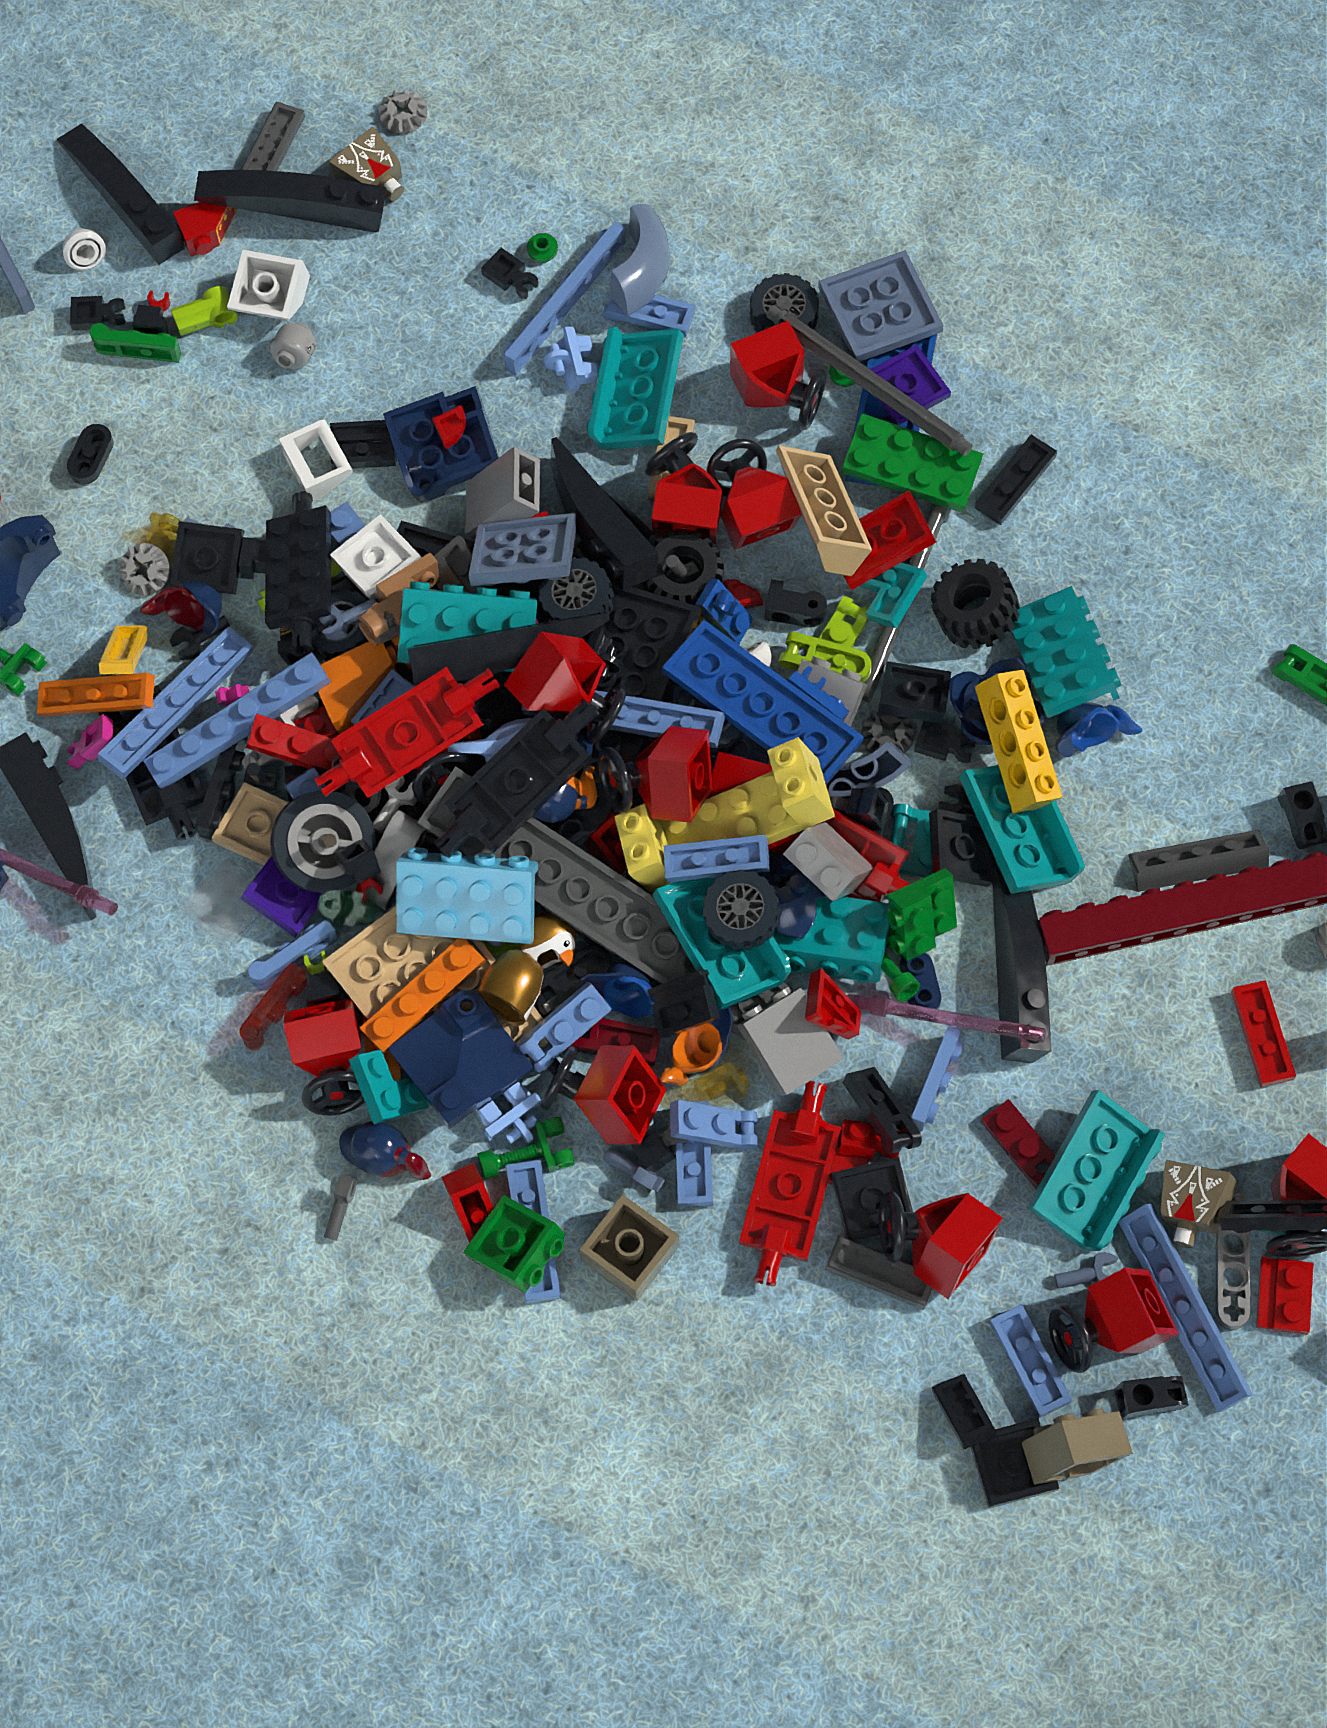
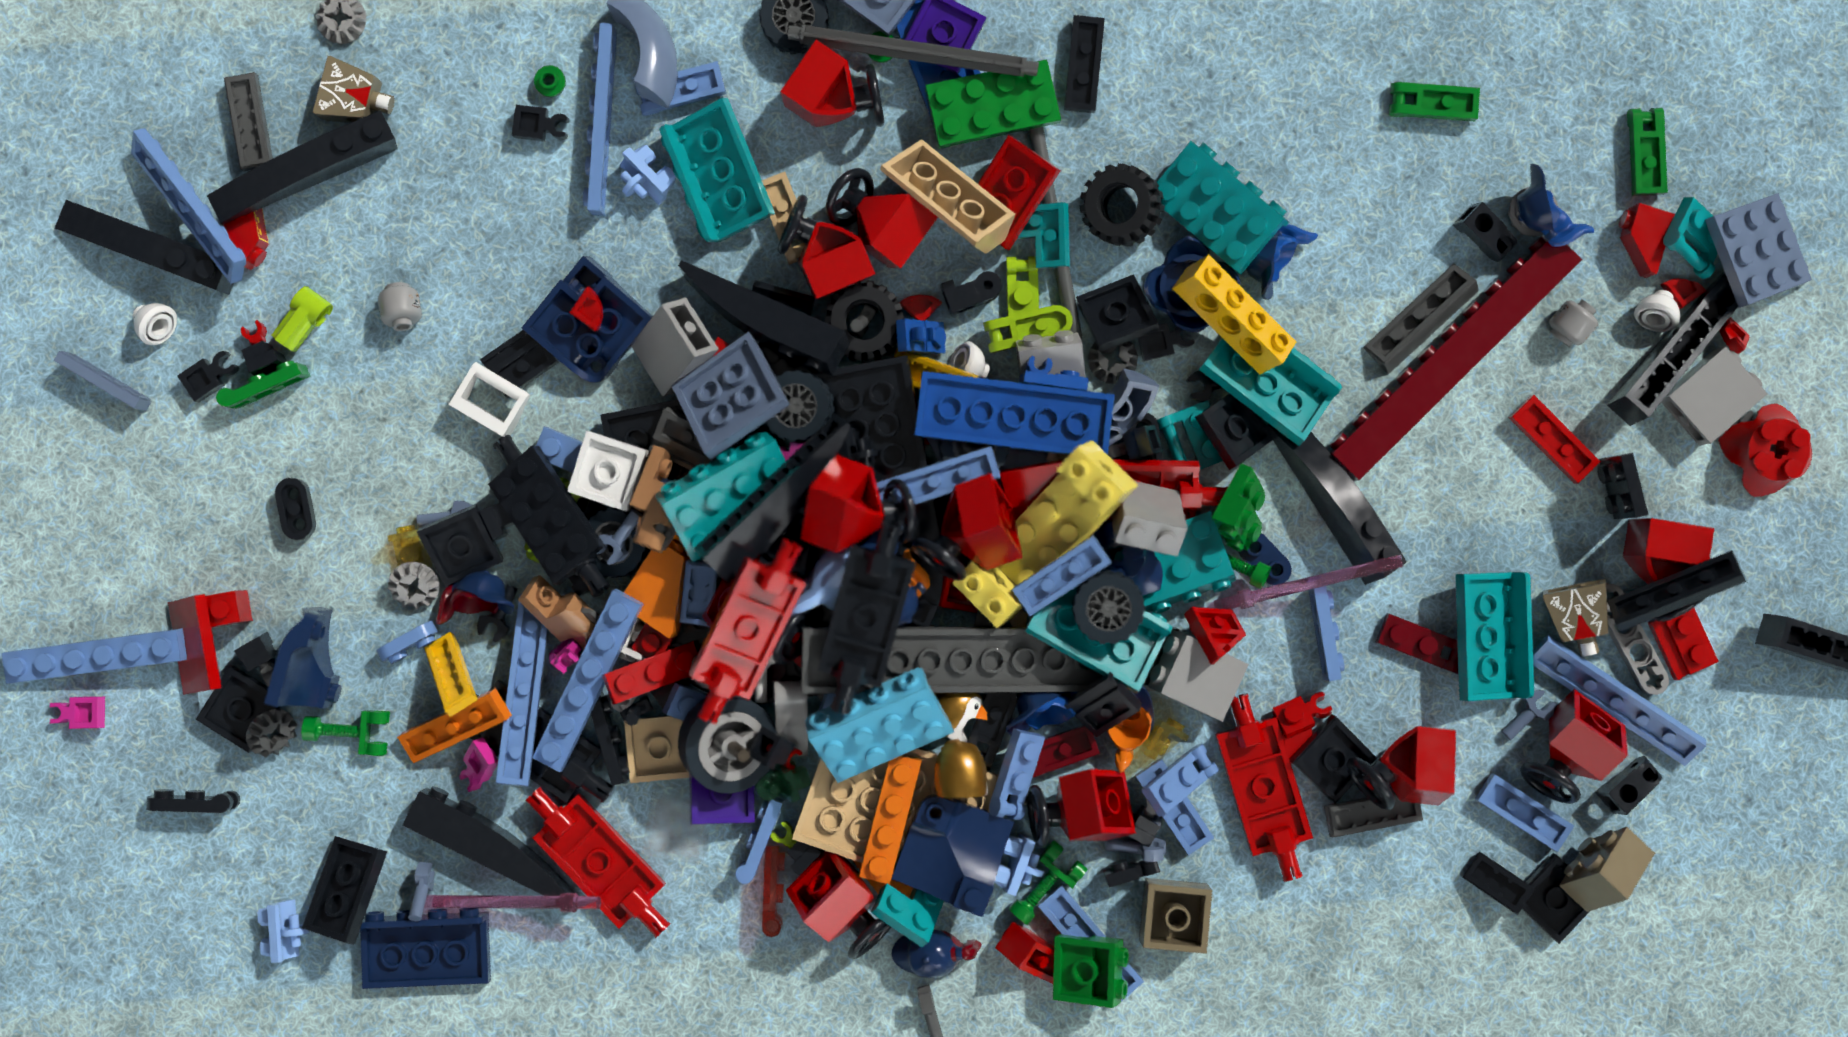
camera: 30 degrees left, 20 degrees up
(104, 609) = (419, 636): none -> medium blue plate
(137, 879) = (599, 860): none -> red plate
(177, 173) = (188, 206): none -> medium blue plate
(249, 657) = (562, 615): none -> medium nougat plate
(268, 285) = (342, 267): white slope -> none
(606, 1183) = (1123, 872): none -> black plate
(882, 1110) = (1301, 686): black plate -> none
(1303, 1094) = (1623, 486): none -> black plate

